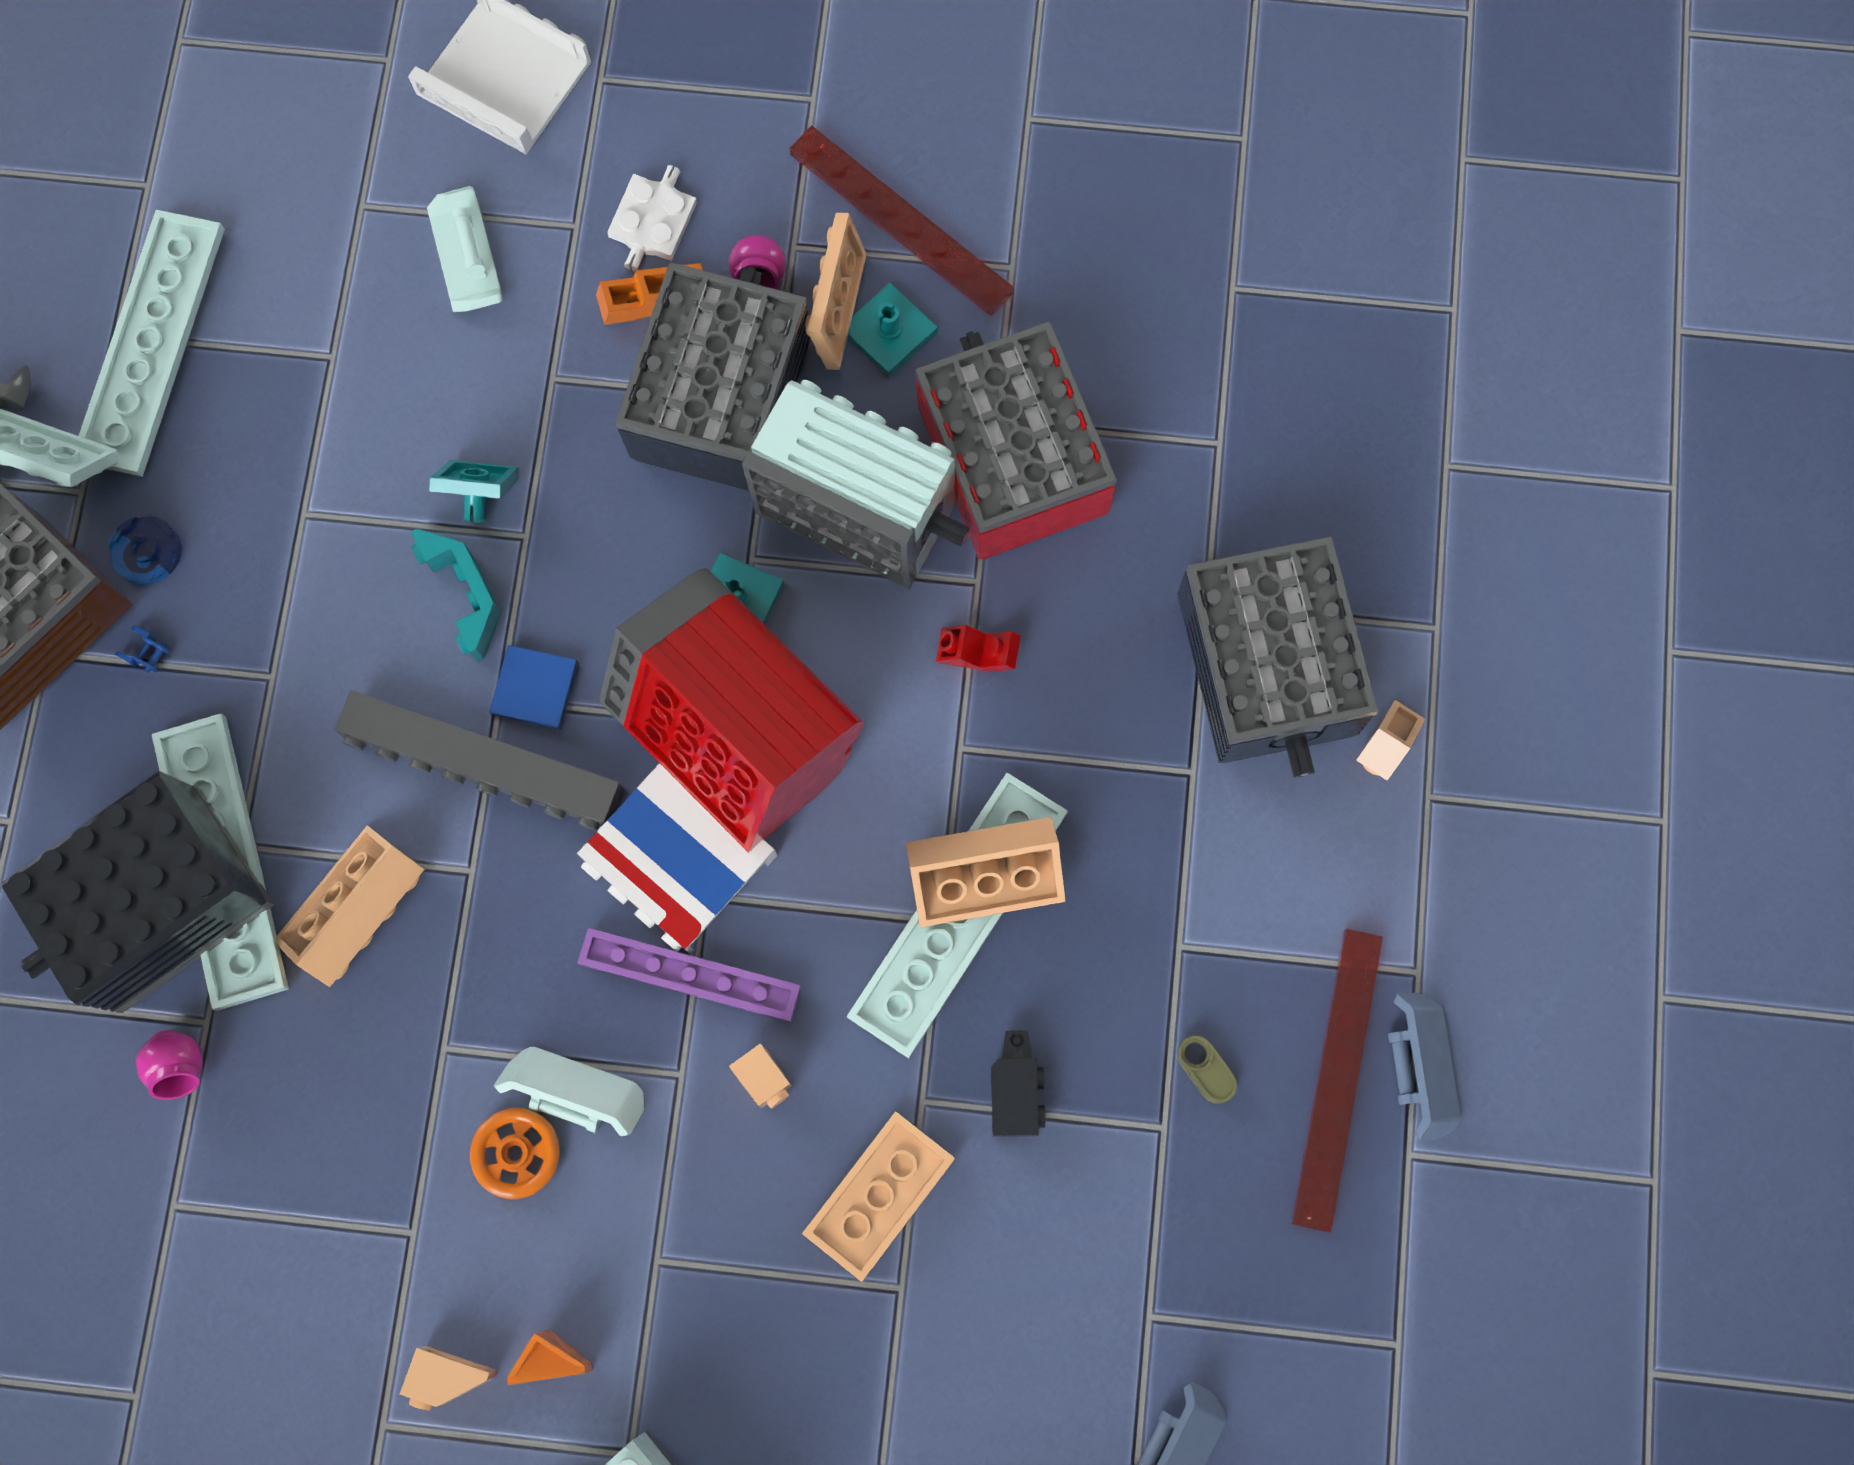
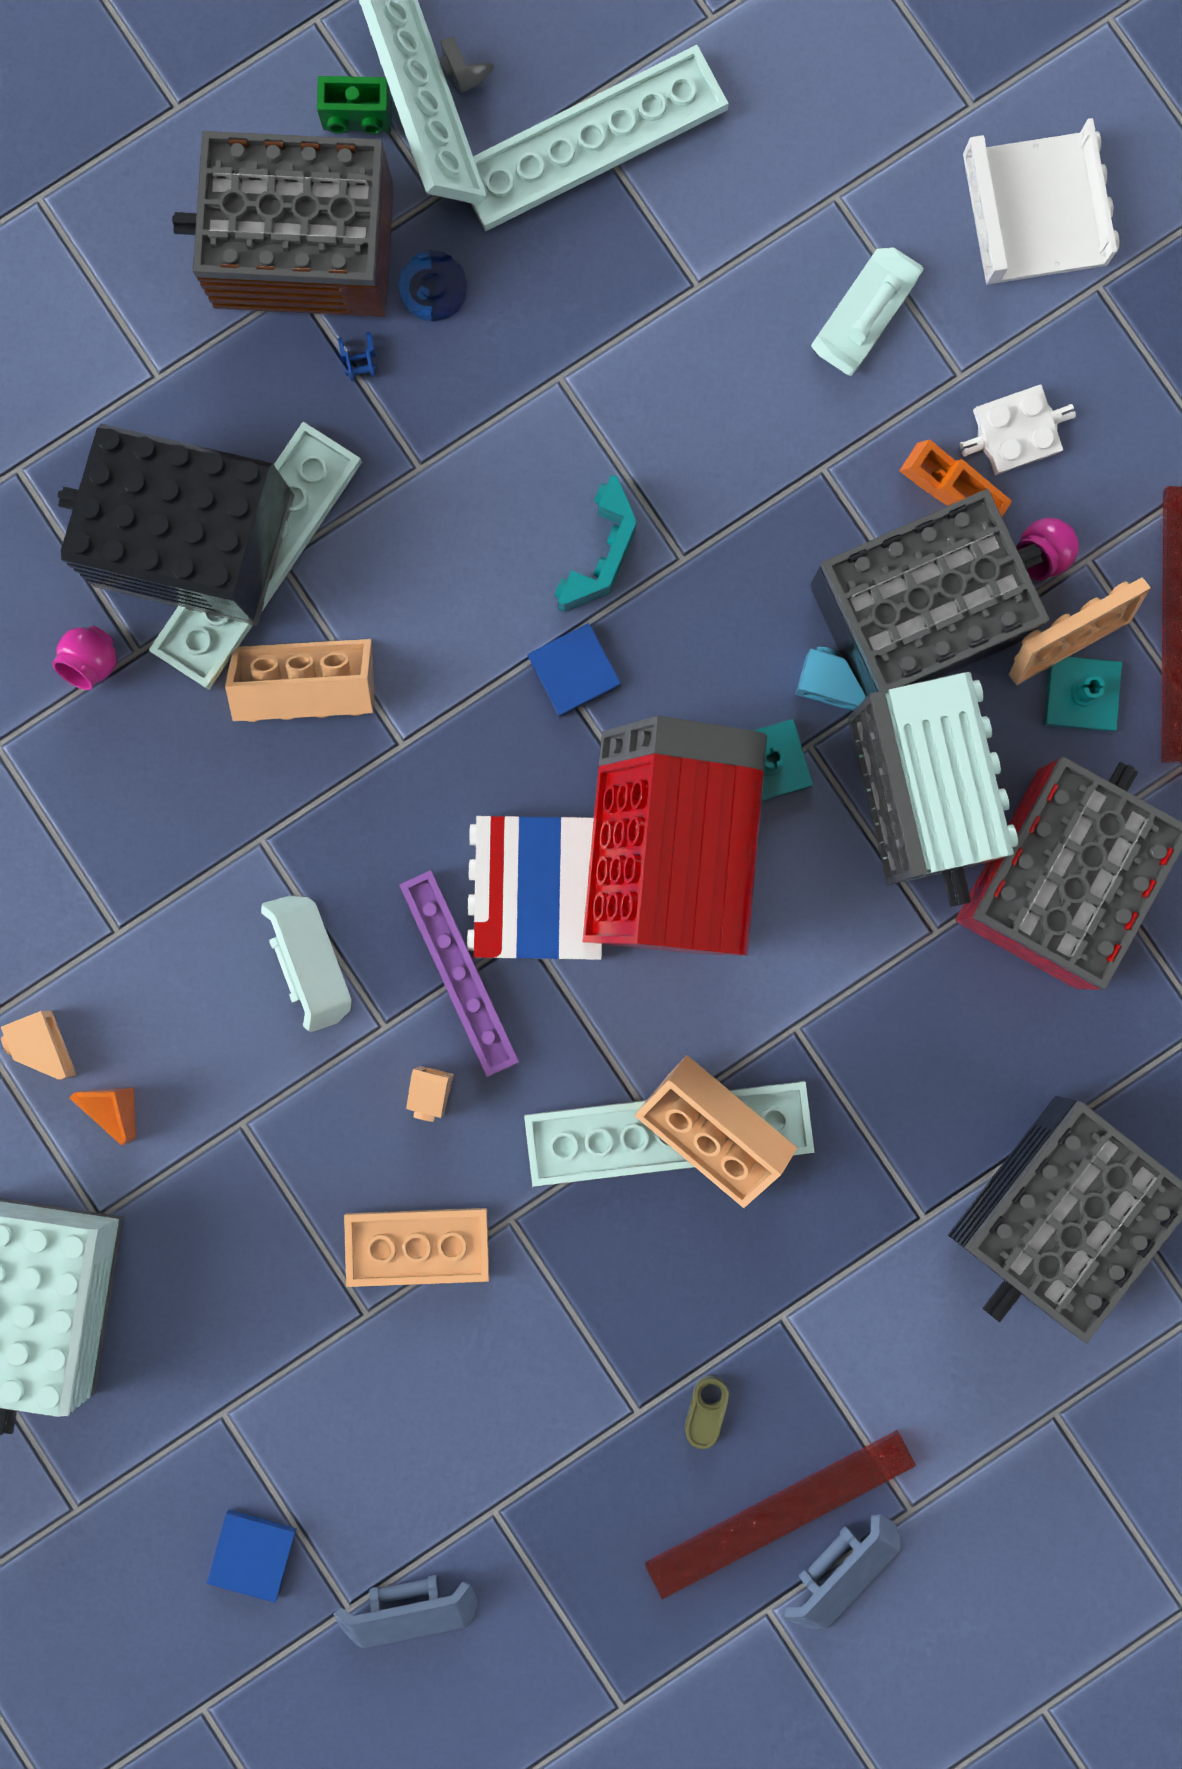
camera: 50 degrees right, 10 degrees up
(475, 483) = (690, 487): teal tile -> none
(478, 759) = (485, 678): dark grey brick -> none
(487, 1136) = (218, 984): orange plate -> none
(714, 501) = (829, 680): none -> medium azure slope
(976, 650) = (882, 979): red slope -> none
(1015, 1089) = (573, 1284): black hinge -> none
(1391, 740) = (1070, 1358): light nougat slope -> none

